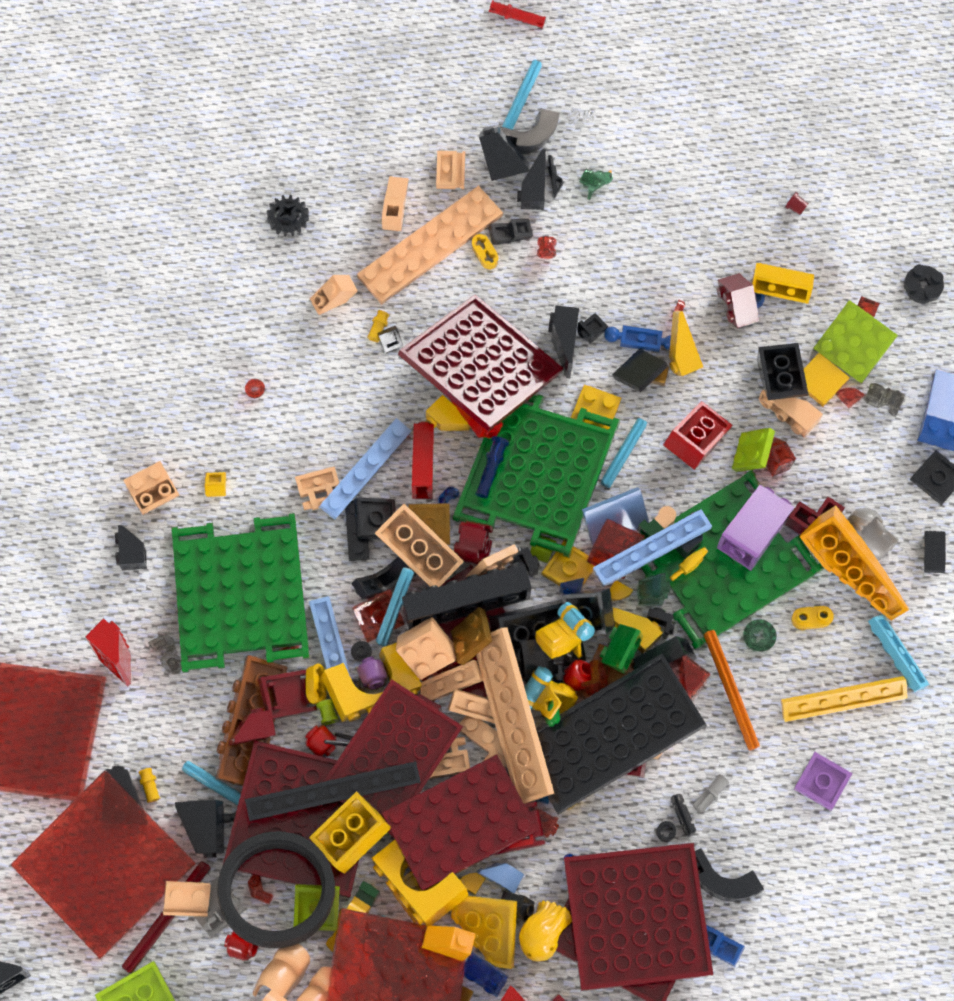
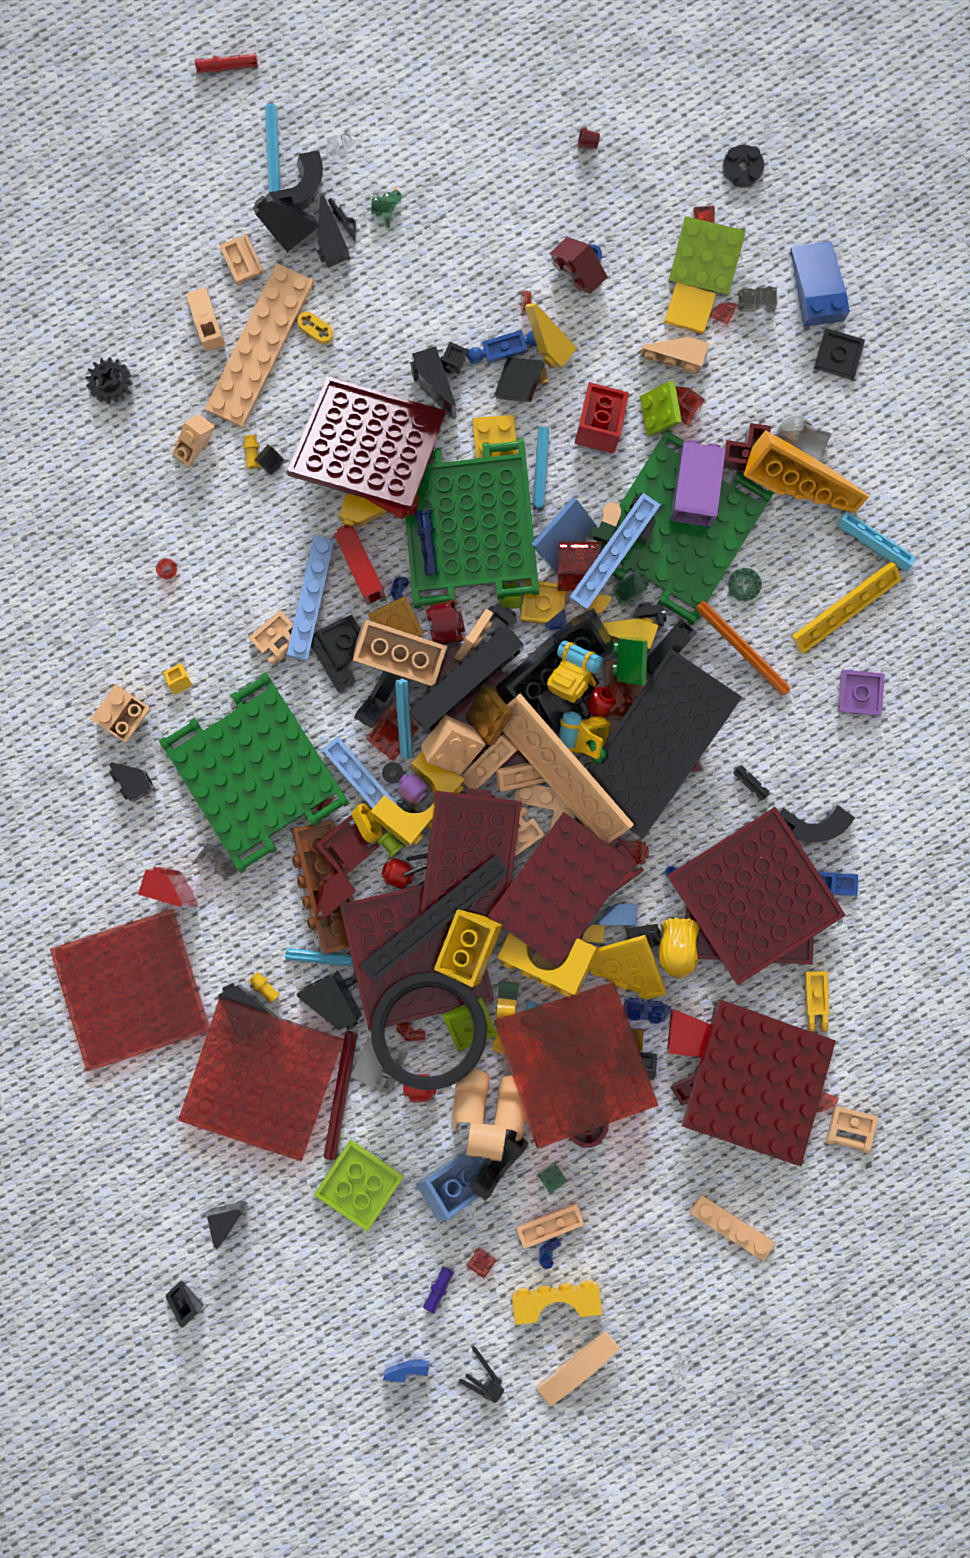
camera: 25 degrees left, 15 degrees up
(186, 898) = (351, 1074): light nougat plate -> none
(449, 941) = (603, 1000): light orange slope -> none
(510, 232) = (330, 296): black slope -> none
(546, 247) = (372, 296): clear red wheel -> none
(671, 835) = (737, 802): black bush -> none
(690, 563) = (653, 548): yellow hand -> none
(692, 676) = (704, 655): clear red slope -> none
(710, 793) = (767, 752): light grey axle -> none
(782, 283) = (612, 227): yellow brick -> none
(782, 371) = (653, 319): black slope -> none
(813, 617) = (784, 543): yellow plate -> none
(934, 551) = (867, 428): black slope -> none

